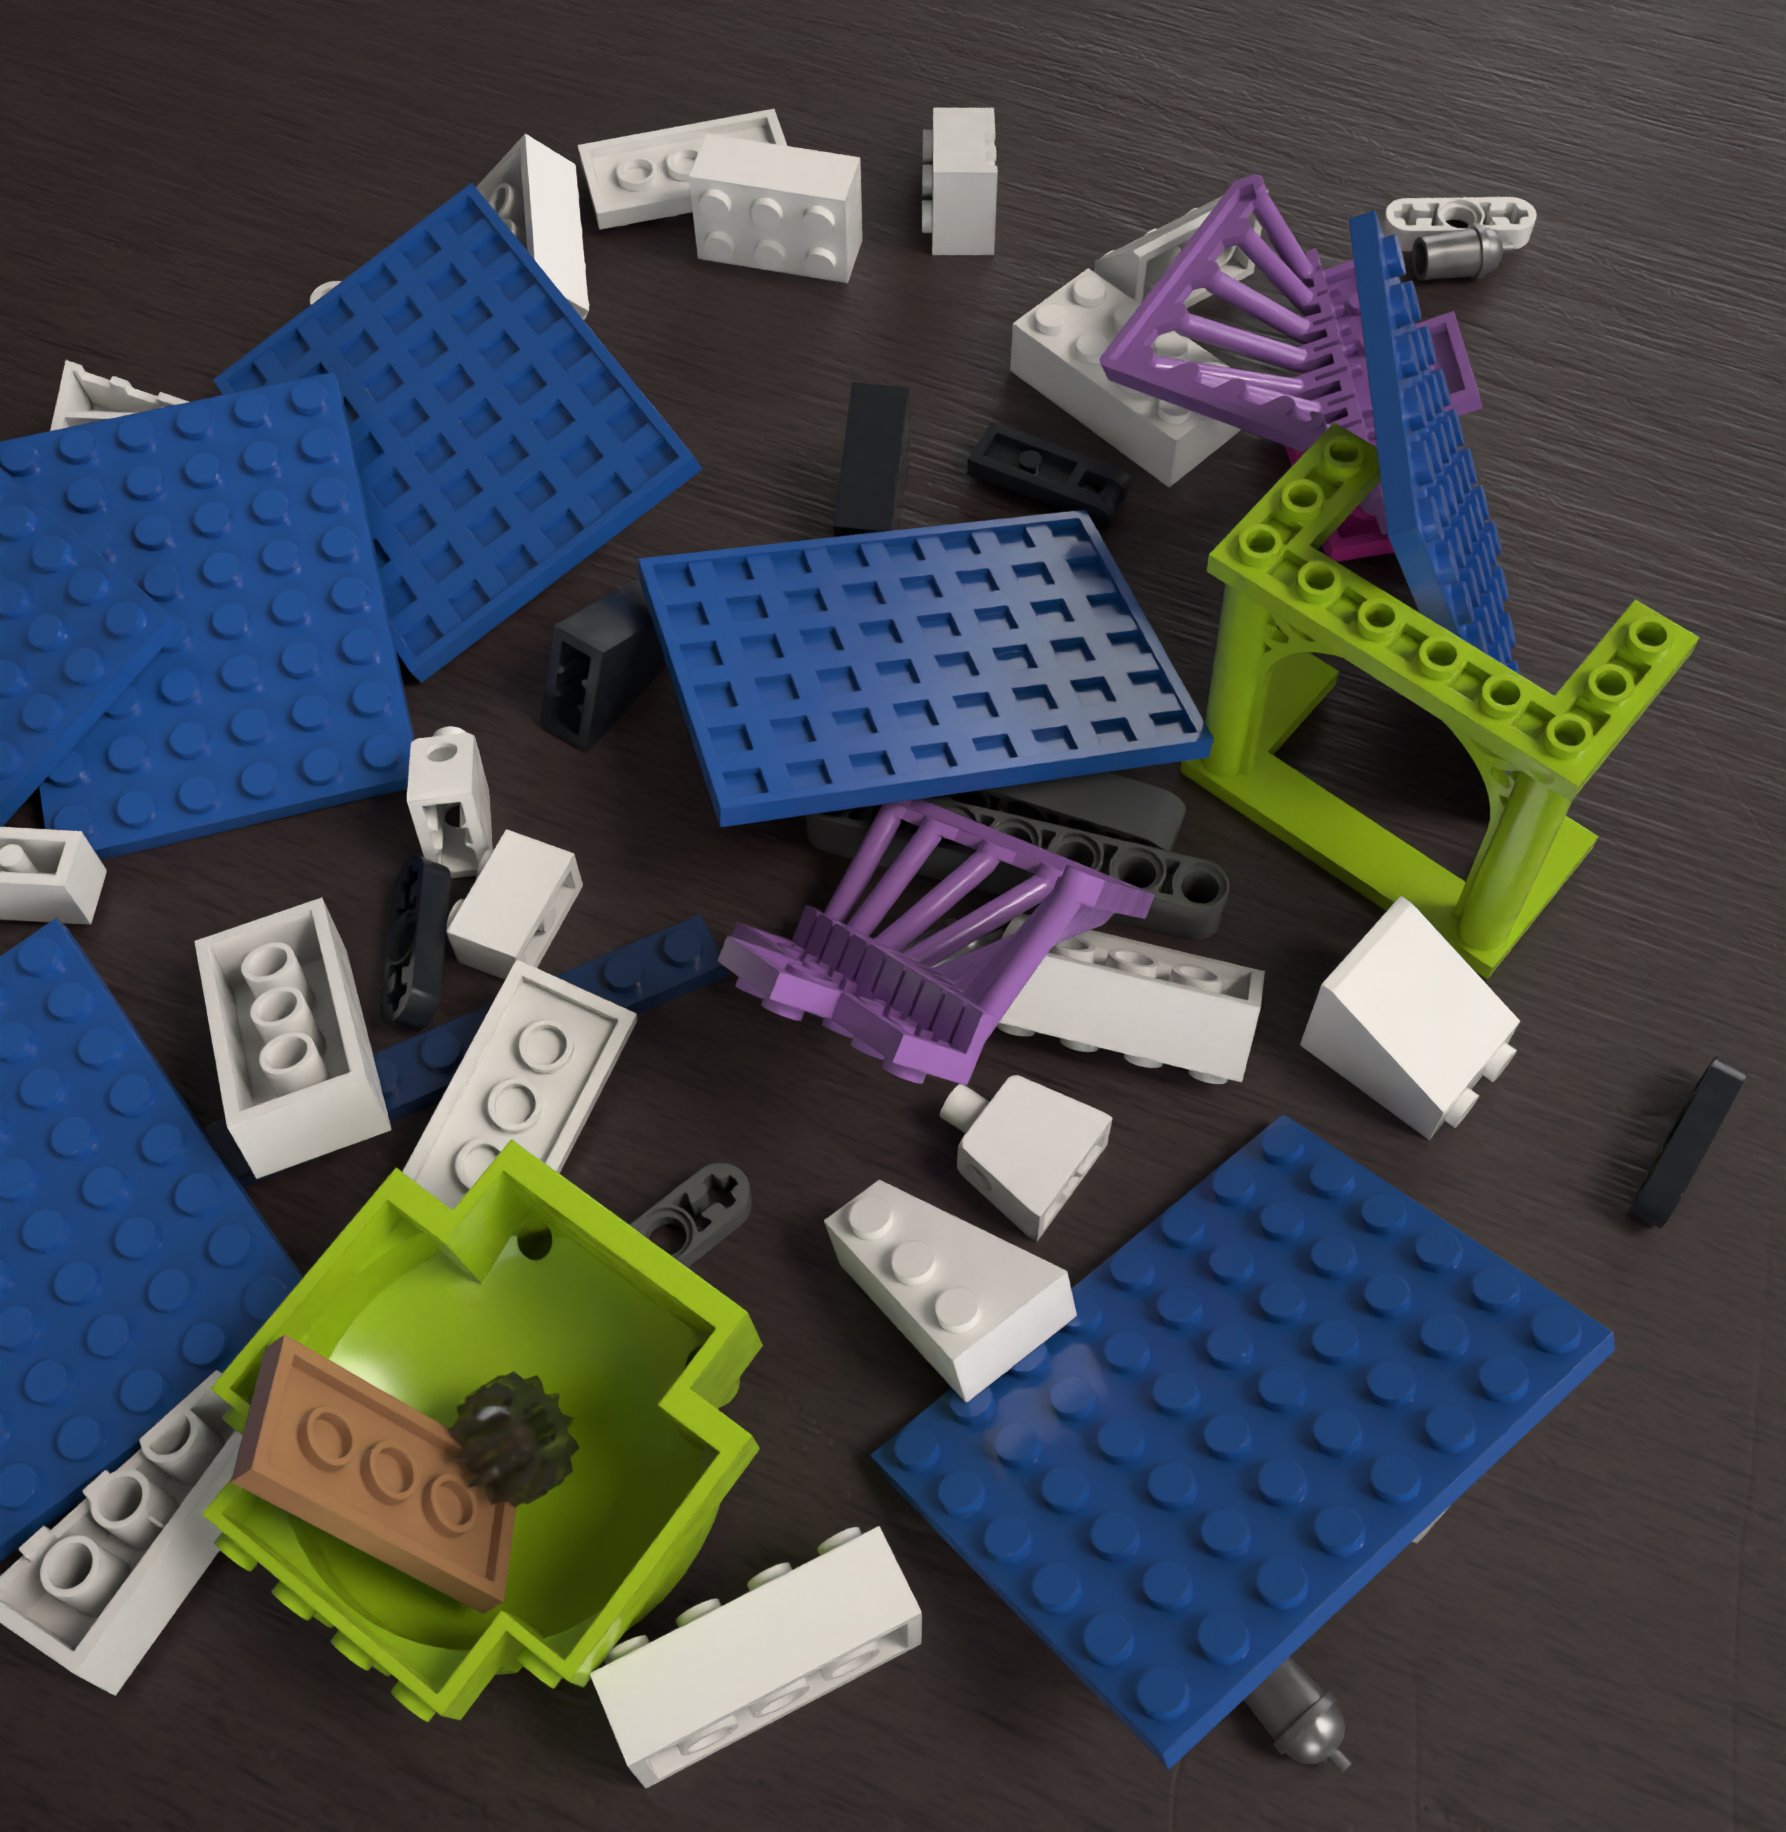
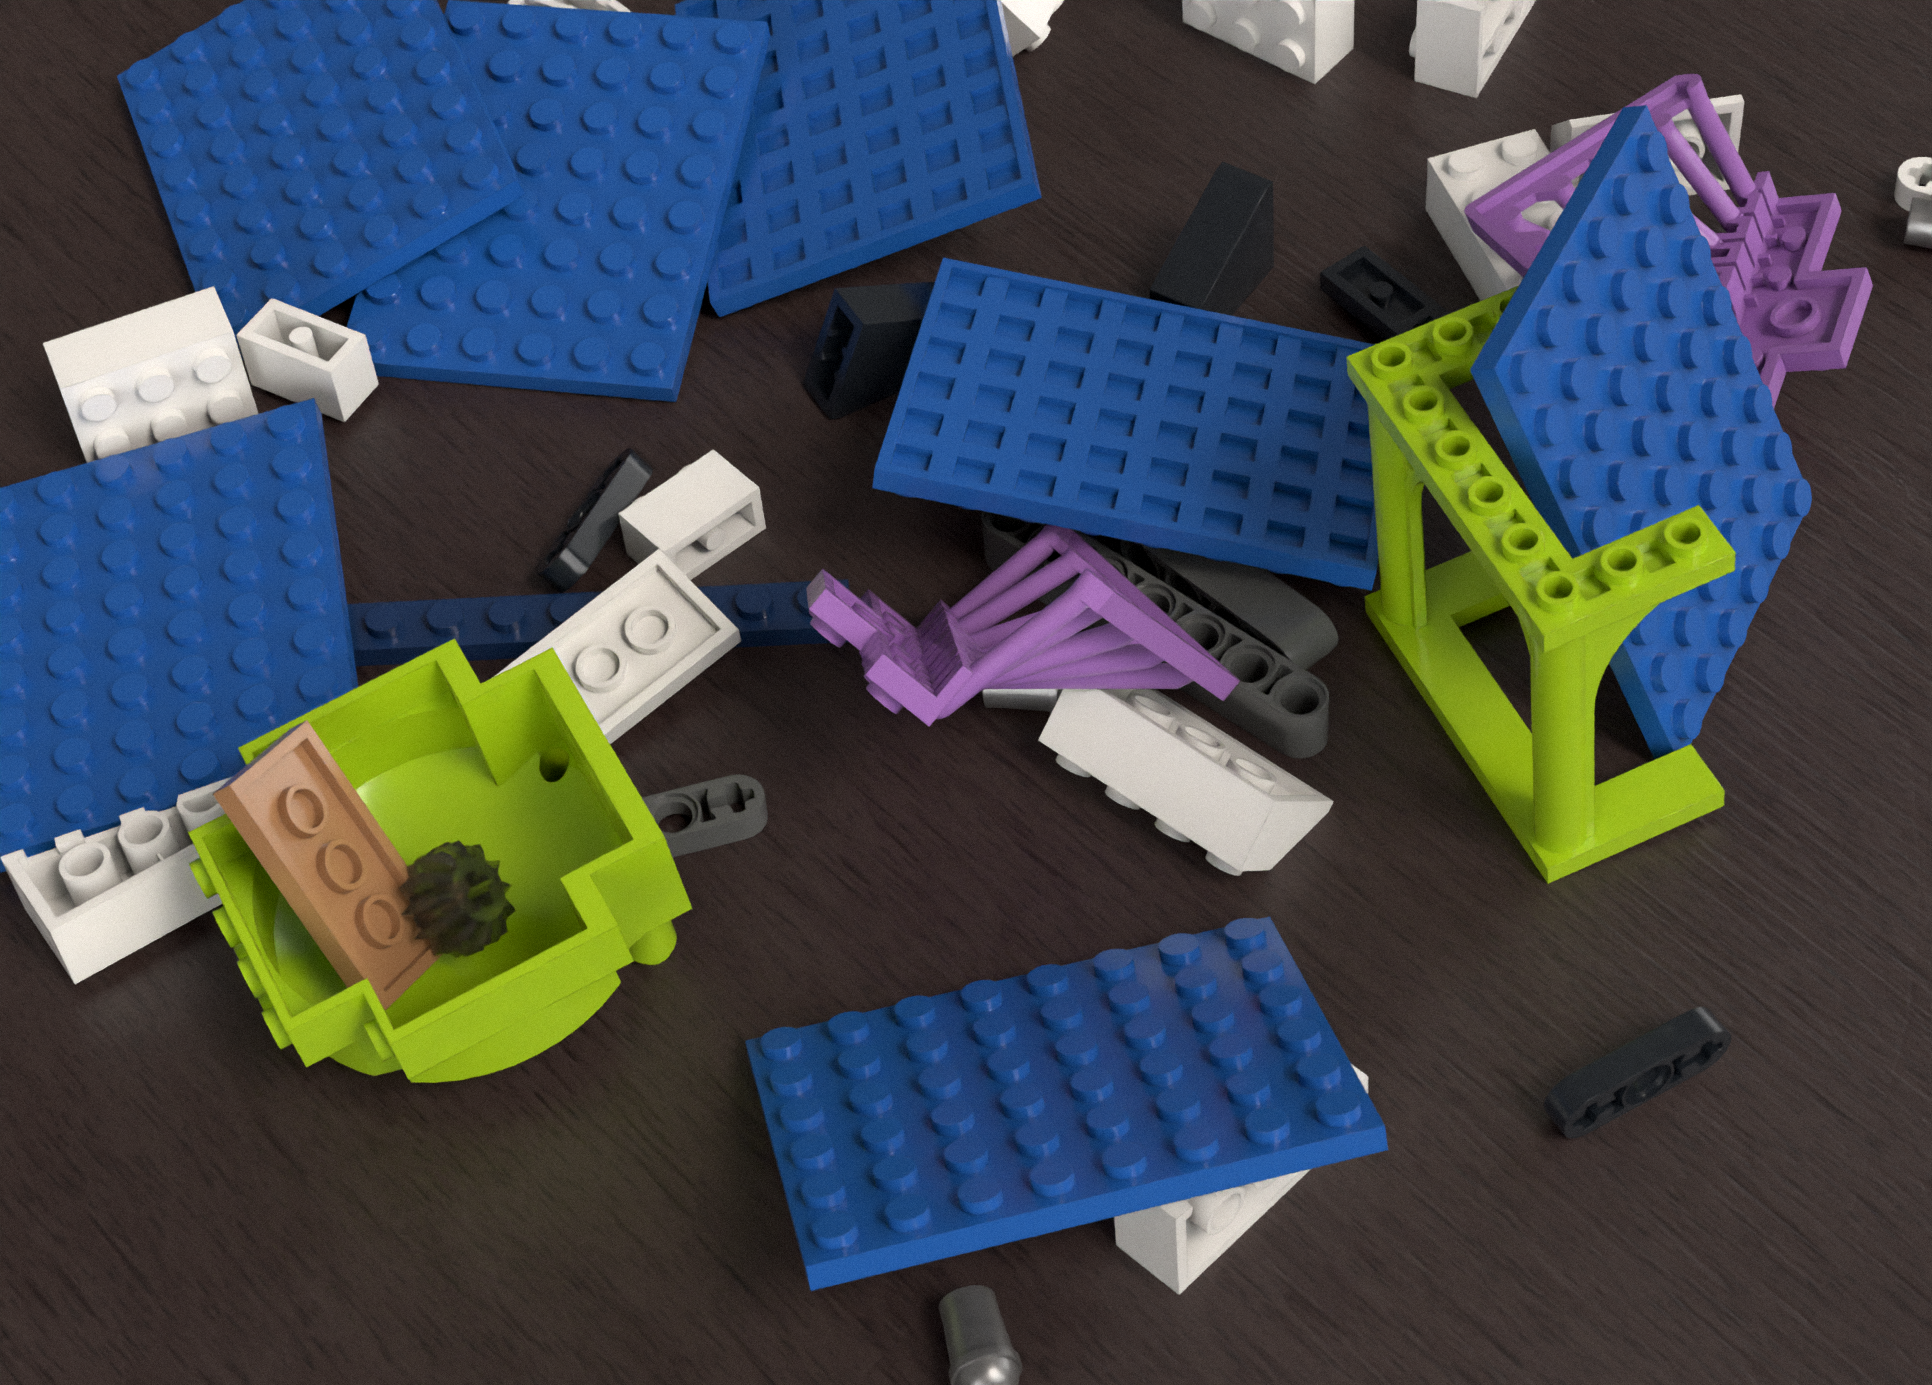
camera: 30 degrees right, 10 degrees down
(289, 1039) = (446, 548): white brick -> none
(447, 774) = (684, 399): white torso -> none
(758, 1654) = (562, 1131): white brick -> none
(950, 1286) = (880, 928): white wedge -> none
(1026, 1147) = (1020, 859): white torso -> none
(1411, 1022) = (1425, 872): white slope -> none

